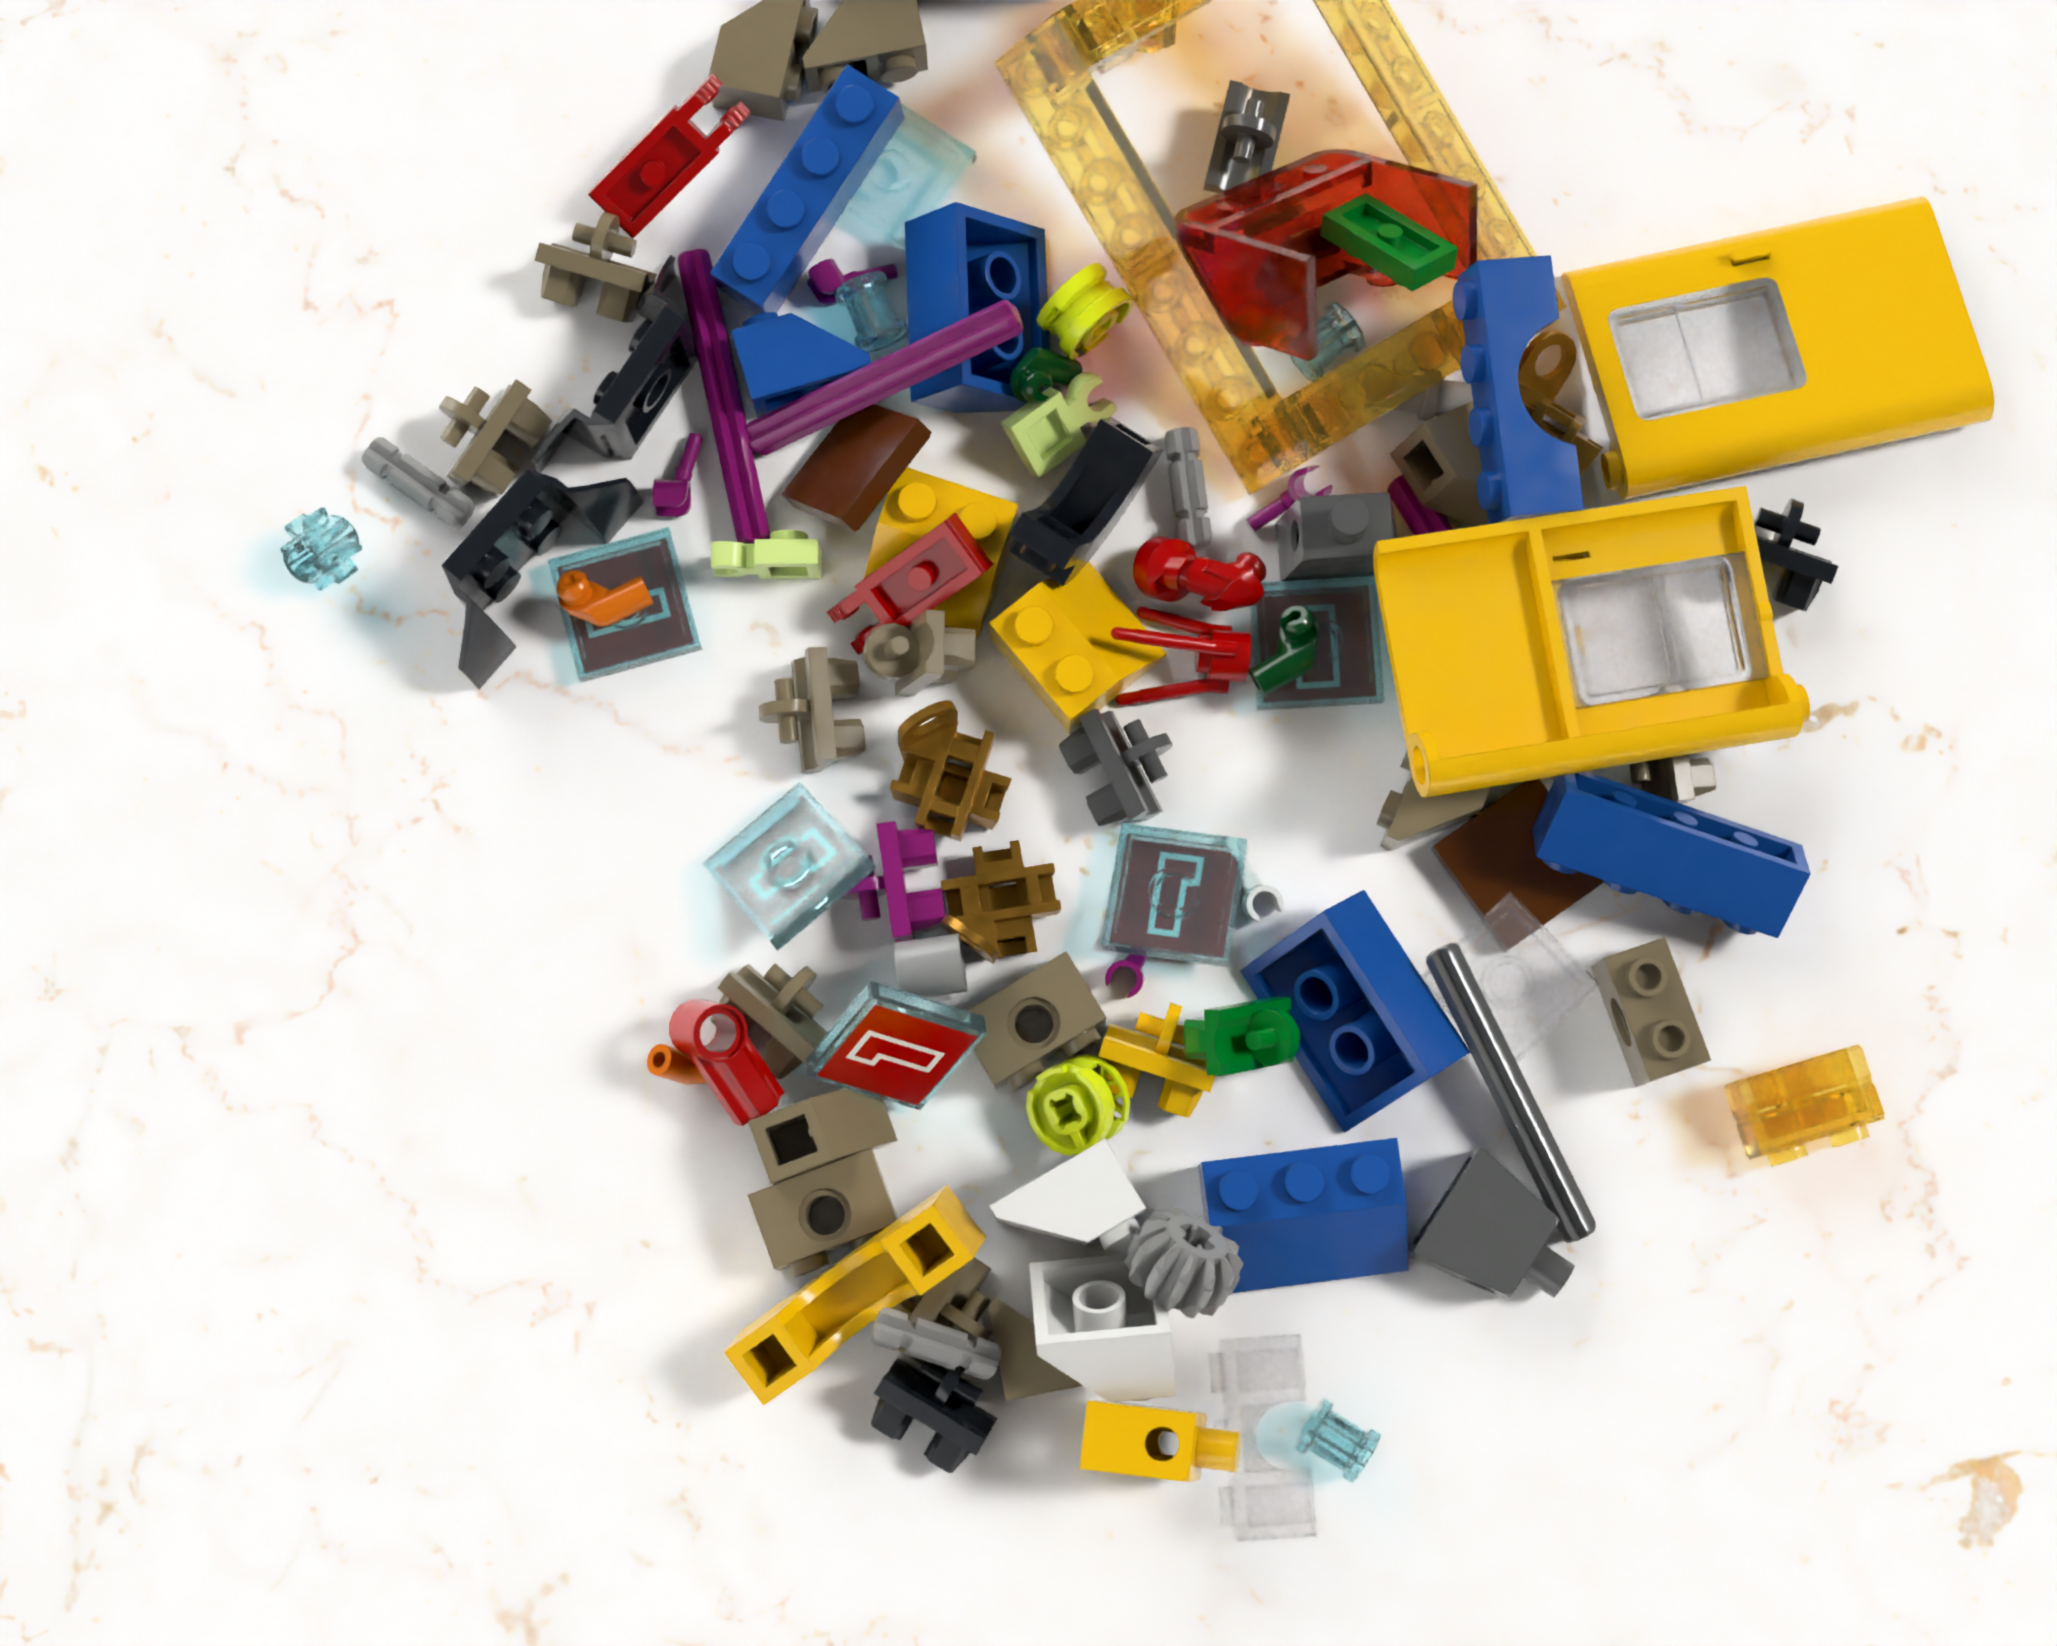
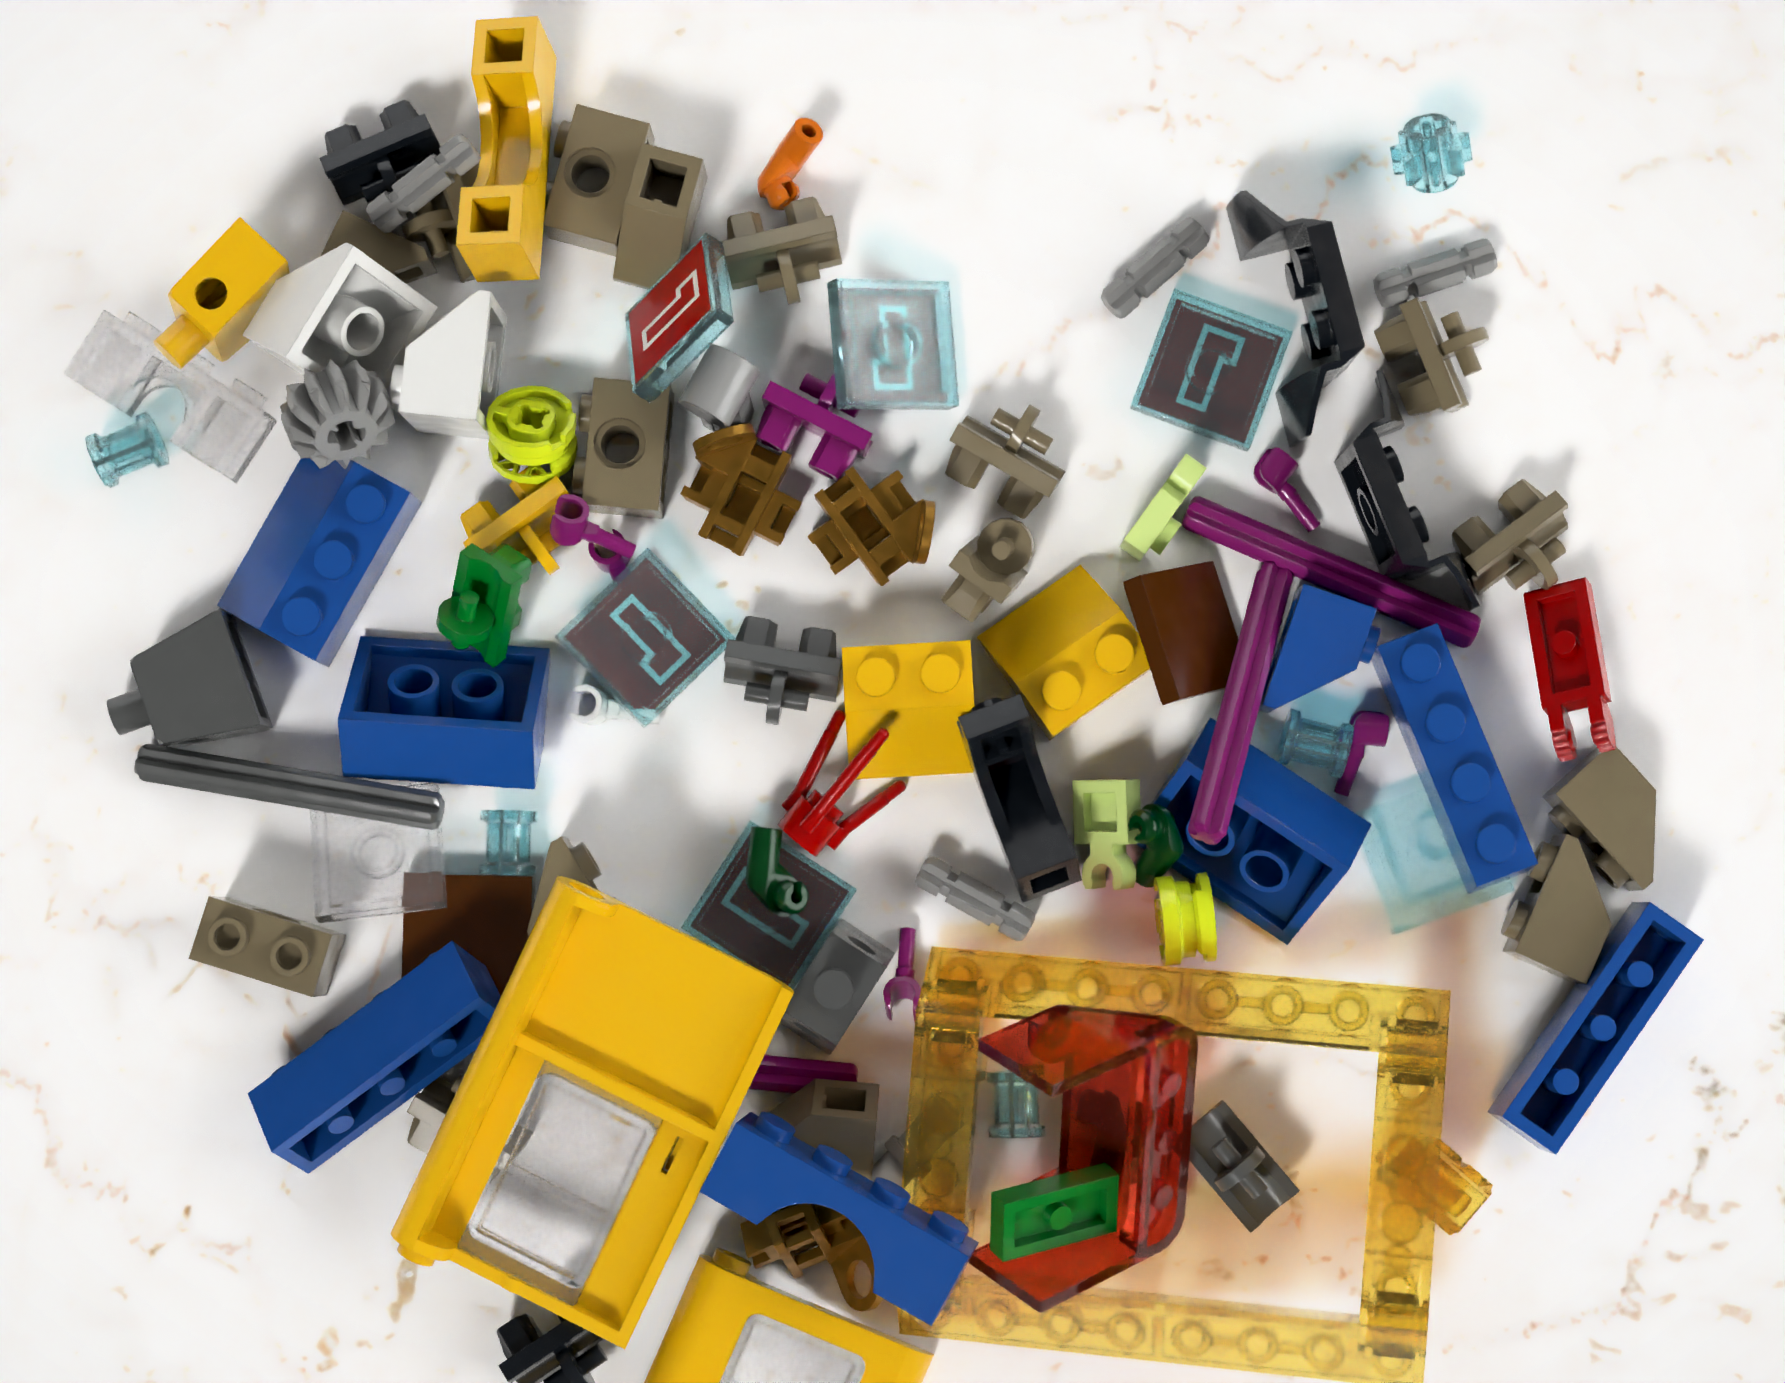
camera: 125 degrees right, 5 degrees up
(571, 706) = (1155, 267): none -> light grey axle
(599, 604) = (1221, 343): orange arm -> none
(729, 1060) = (769, 183): red piece -> none
(916, 578) = (1049, 606): red hinge -> none
(1116, 1011) = (571, 525): none -> magenta hand
(1171, 570) = (912, 830): red arm -> none
(1421, 883) = (496, 842): none -> clear light blue bush
(1805, 1103) = (105, 1016): clear yellow brick -> none

